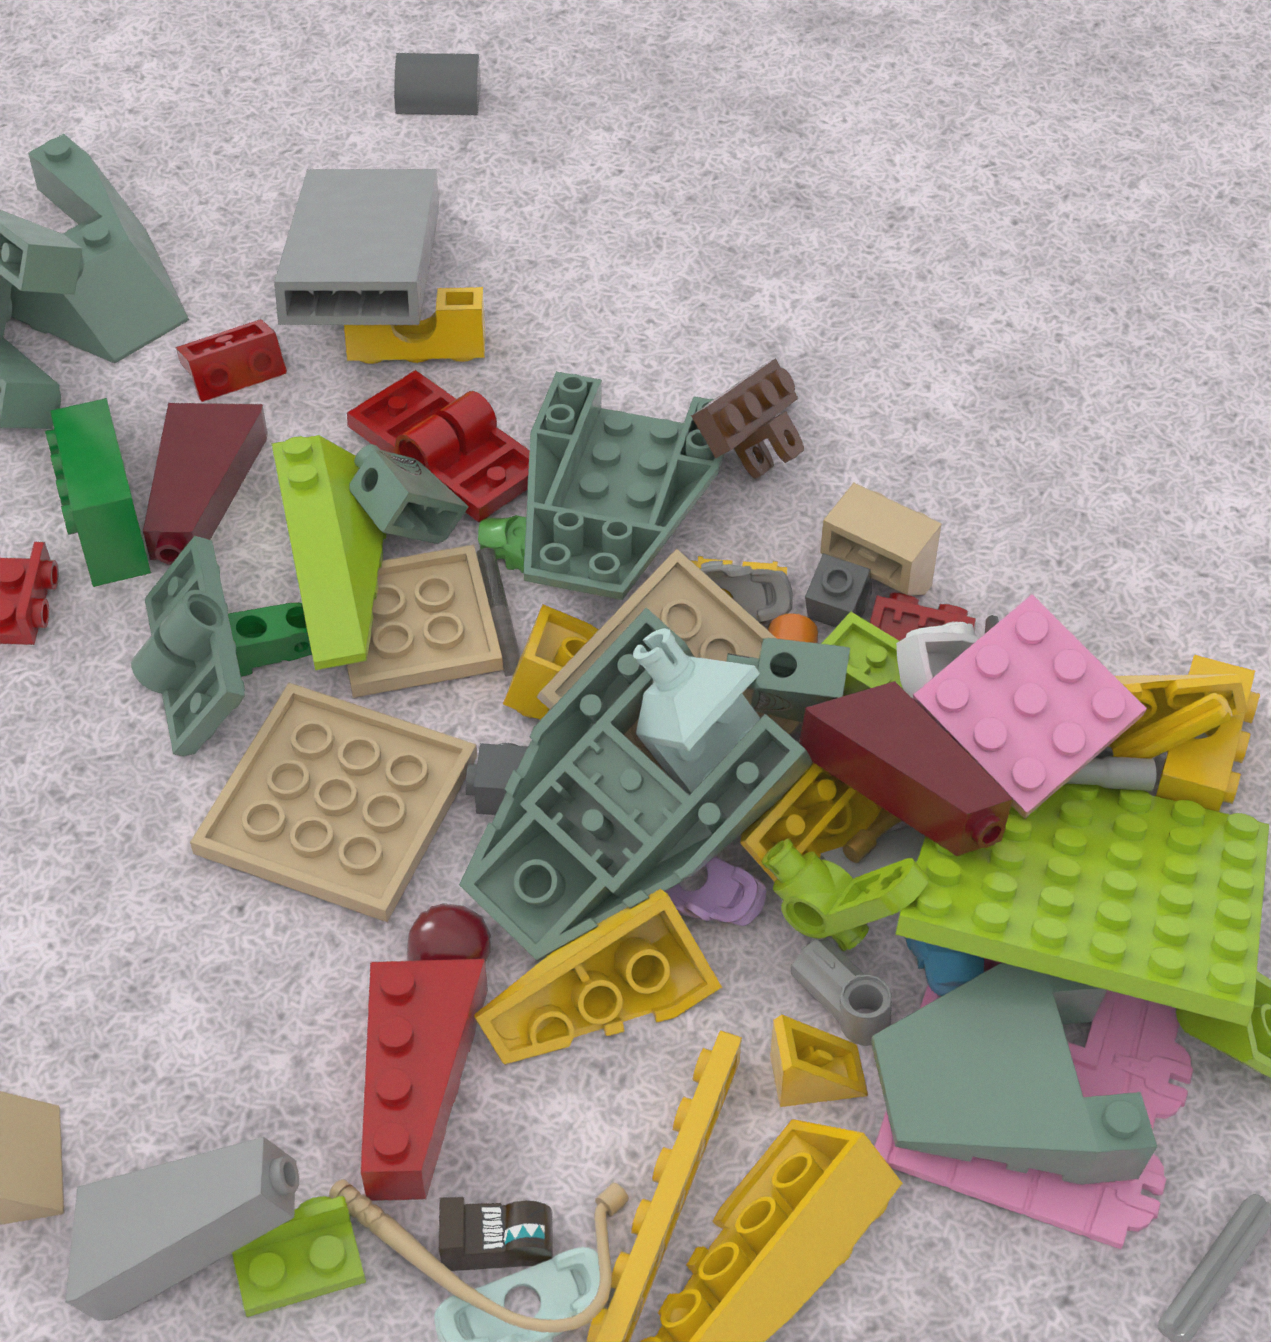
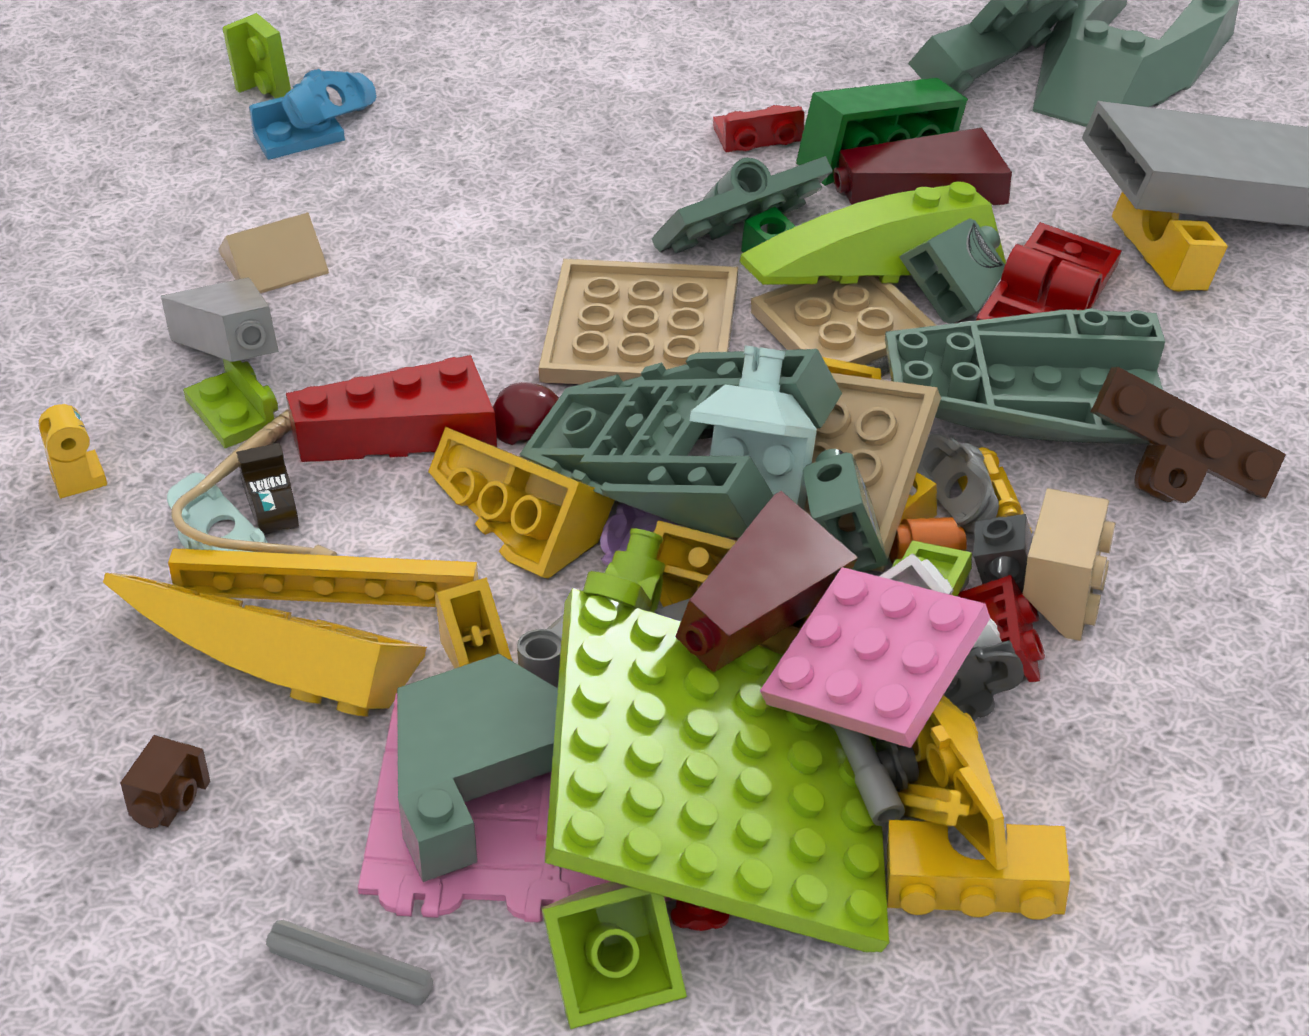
camera: 75 degrees right, 10 degrees down
(232, 359) = (1062, 158): red bracket -> none

